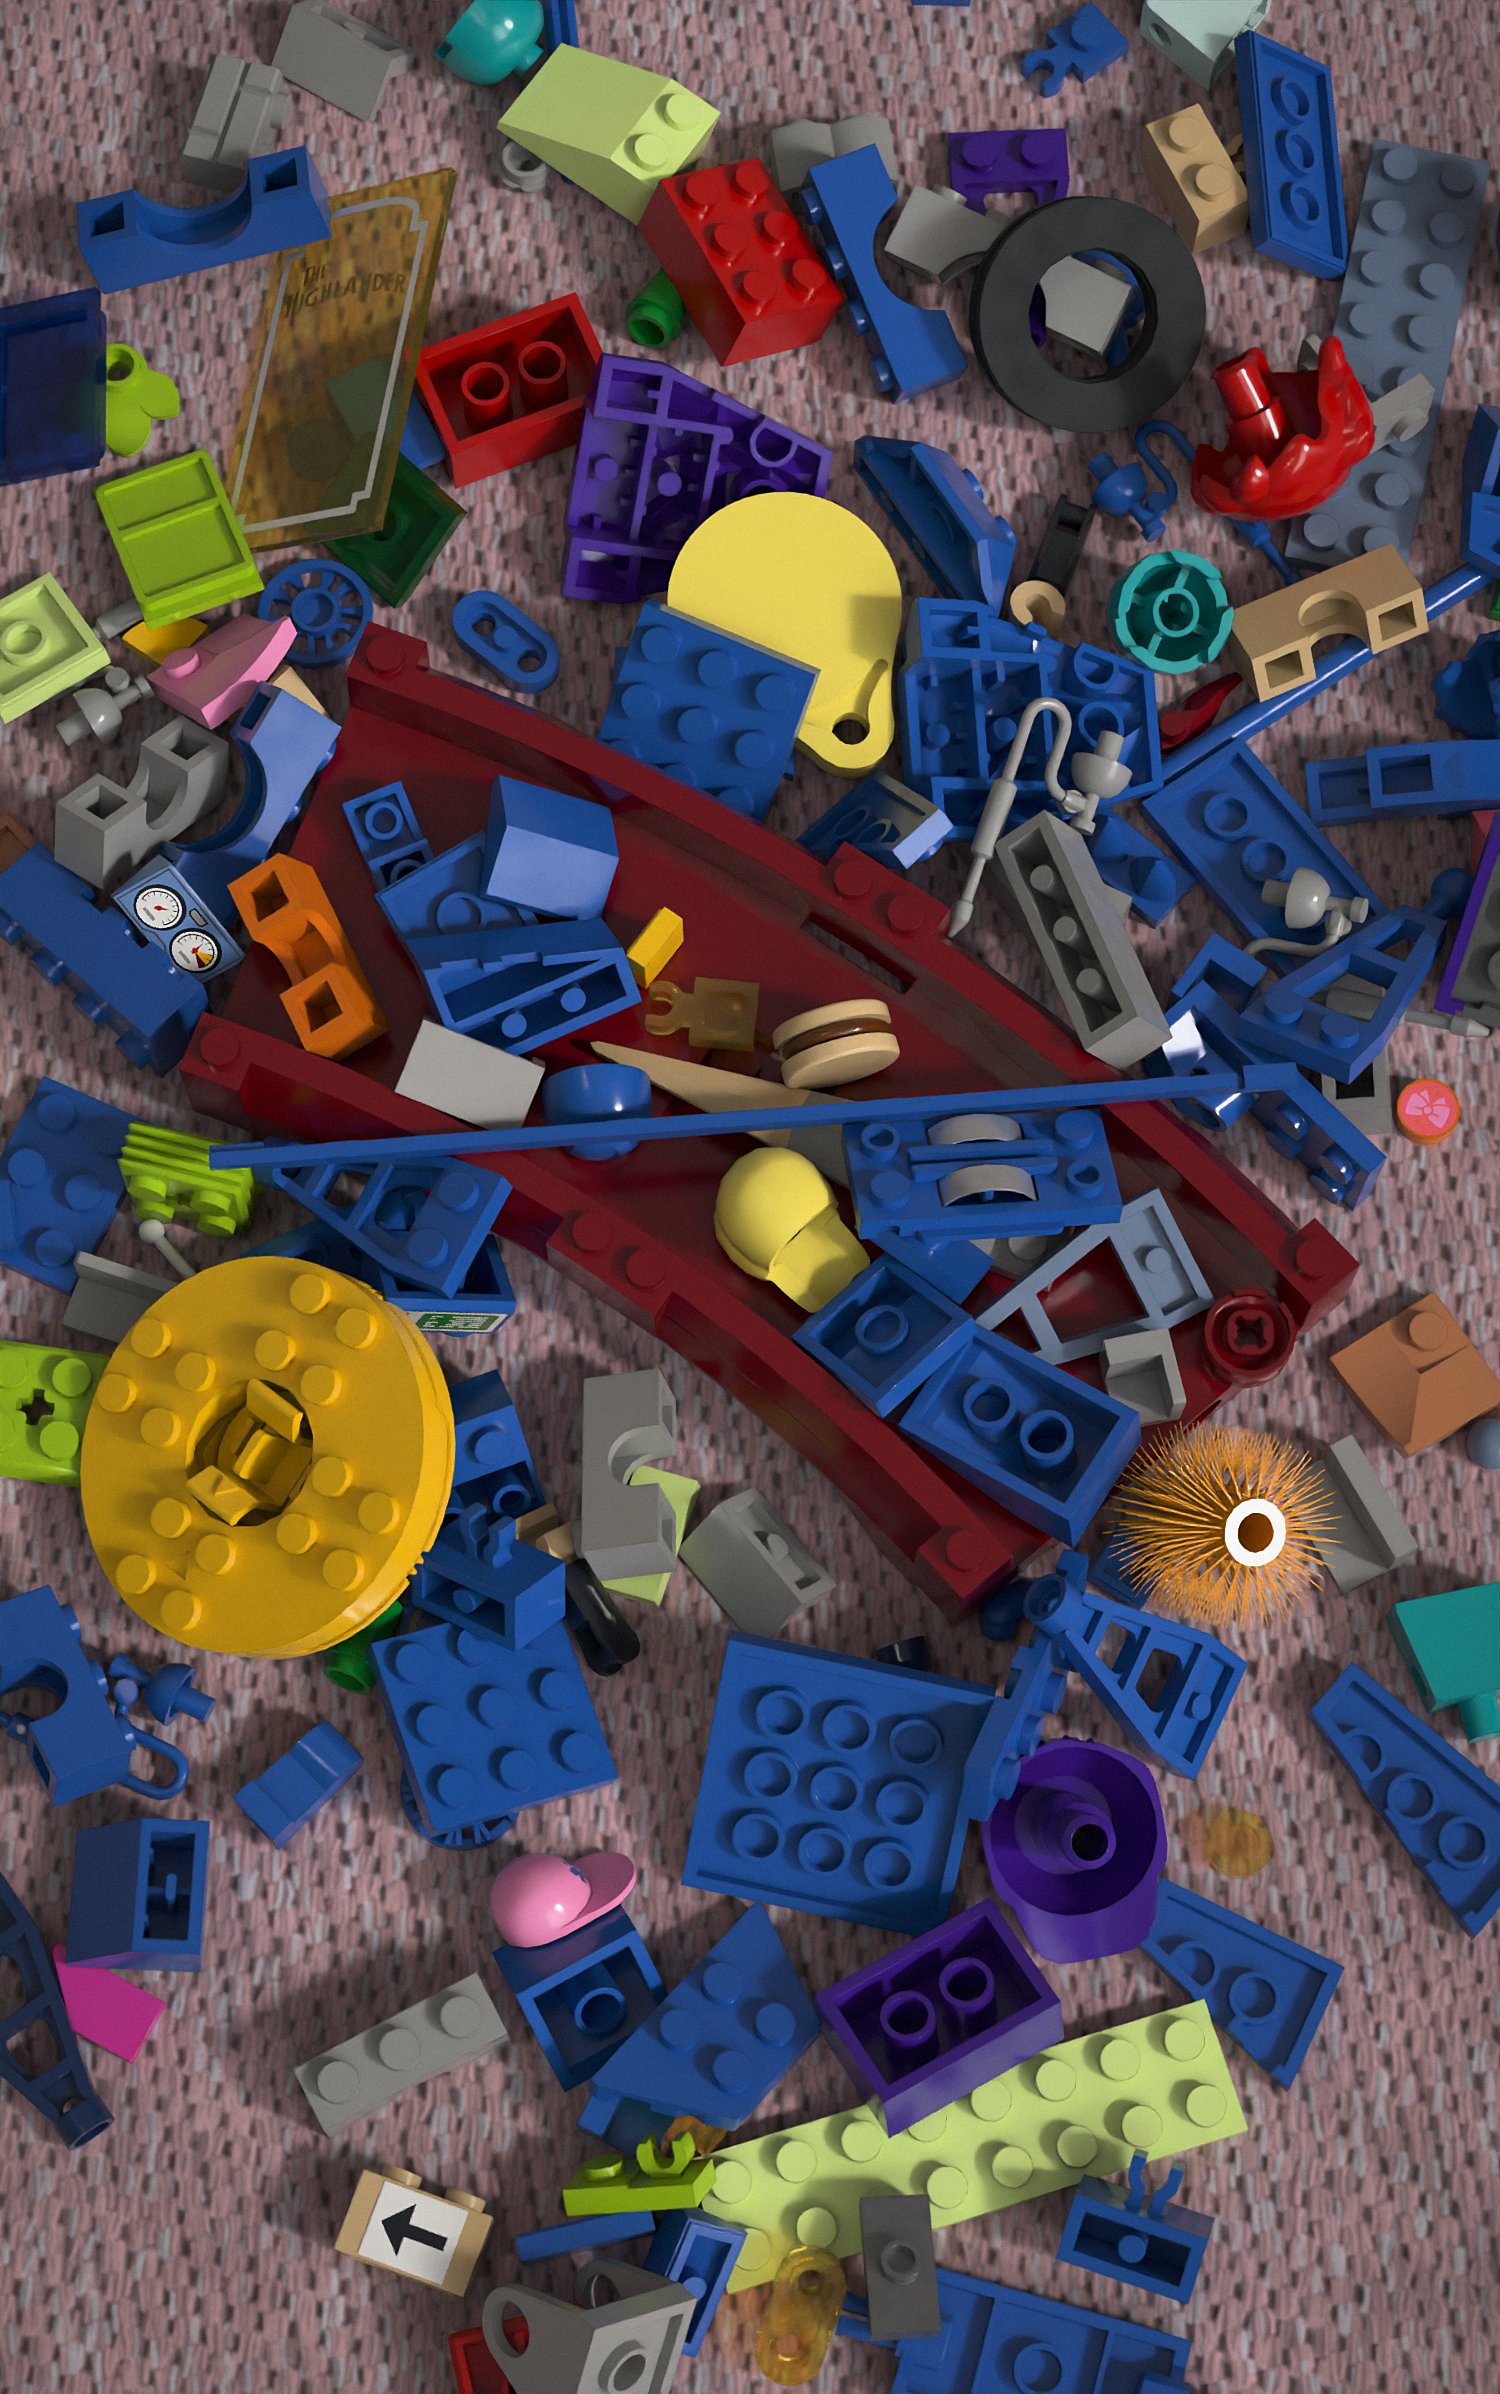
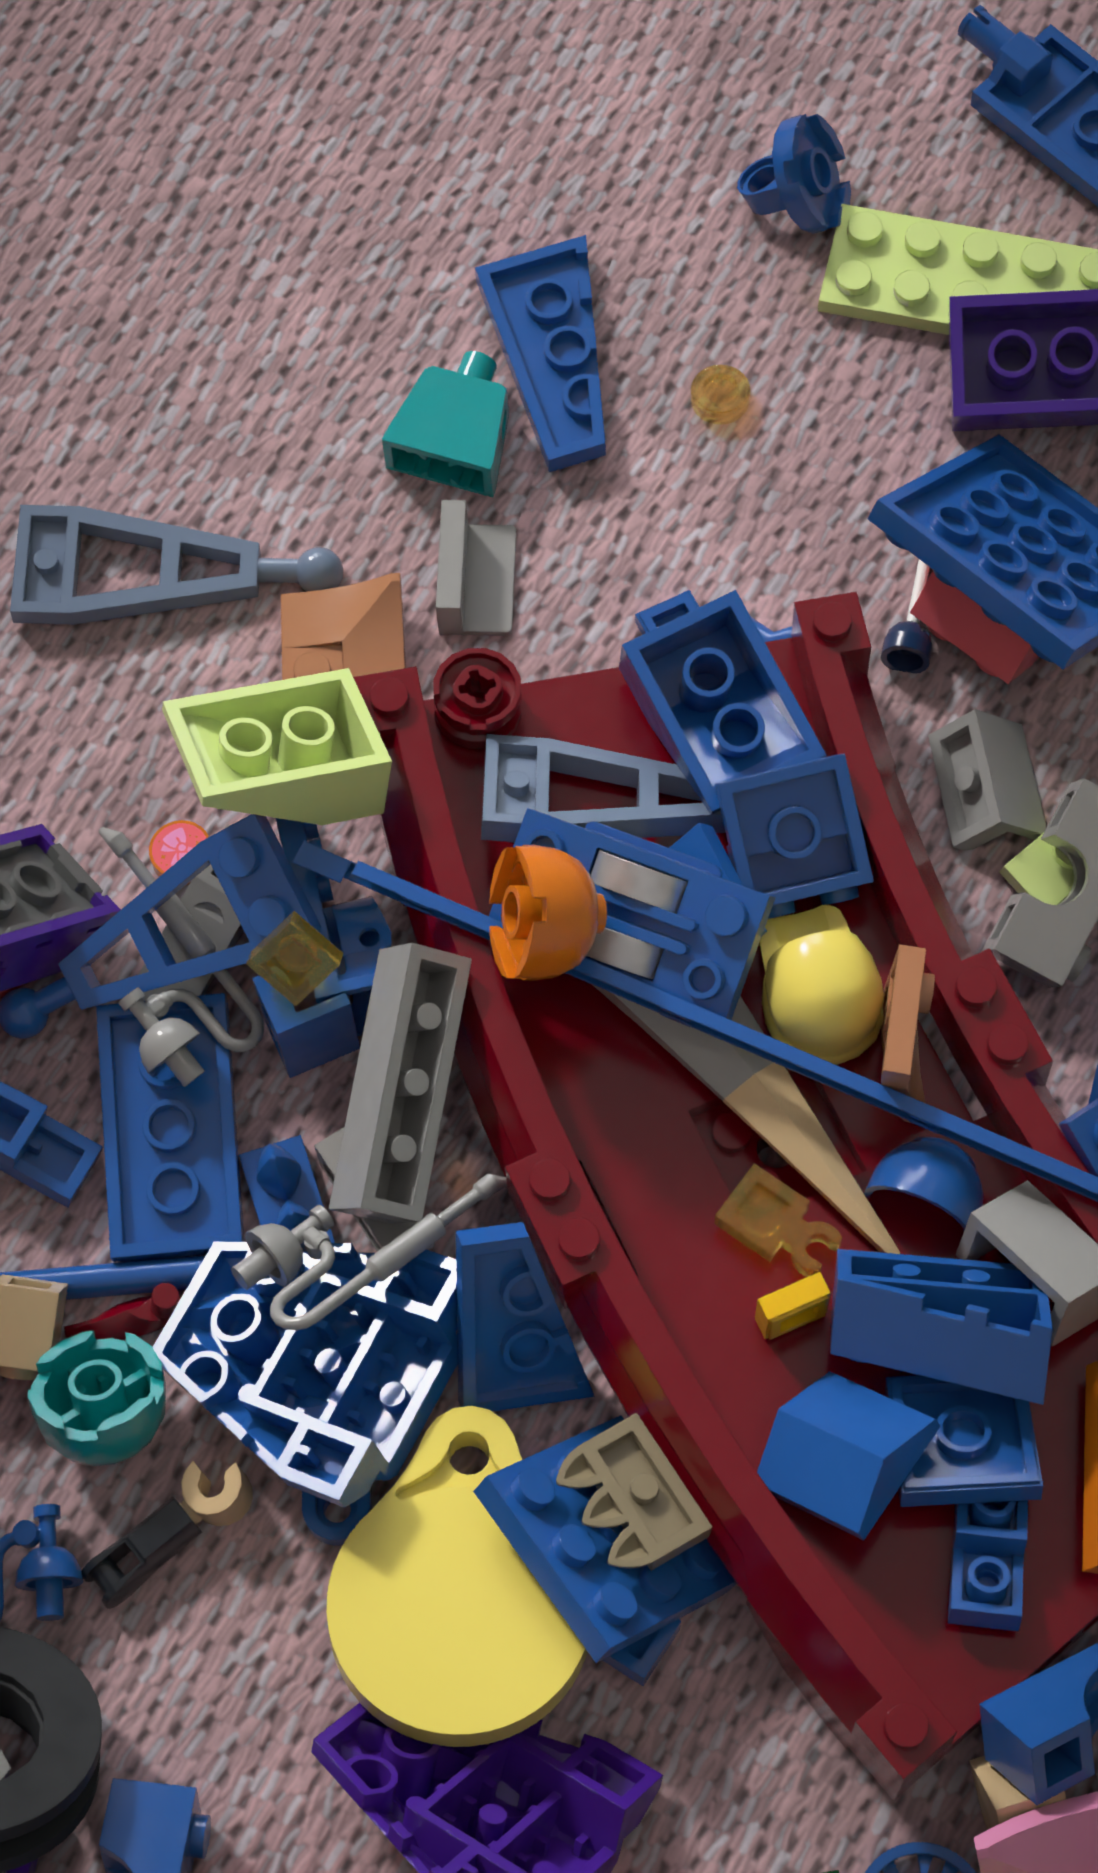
camera: 145 degrees left, 5 degrees down
(508, 644) = (746, 1761): blue plate -> none
(676, 1185) = (905, 995): none -> nougat plate
(692, 738) = (638, 1493): none -> dark tan plate
(836, 1044) = (682, 1109): tan head -> none
(940, 517) = (241, 1623): blue wedge -> none
(1017, 1719) = (830, 530): blue wing -> none
(1038, 1095) = (545, 914): none -> orange cylinder
(1079, 1850) = (857, 427): dark purple piece -> none
(1135, 2234) = (975, 162): blue brick -> none
(1144, 1375) = (586, 710): light grey panel -> none
(1194, 1695) = (726, 508): blue plate -> none
(1221, 1525) = (595, 568): light orange piece -> none
(1236, 983) = (294, 958): none -> clear yellow plate
(1253, 1980) = (775, 298): blue wing -> none
(1300, 2120) = (800, 175): none -> blue tile
(1373, 1137) = (284, 749): none -> yellowish green slope

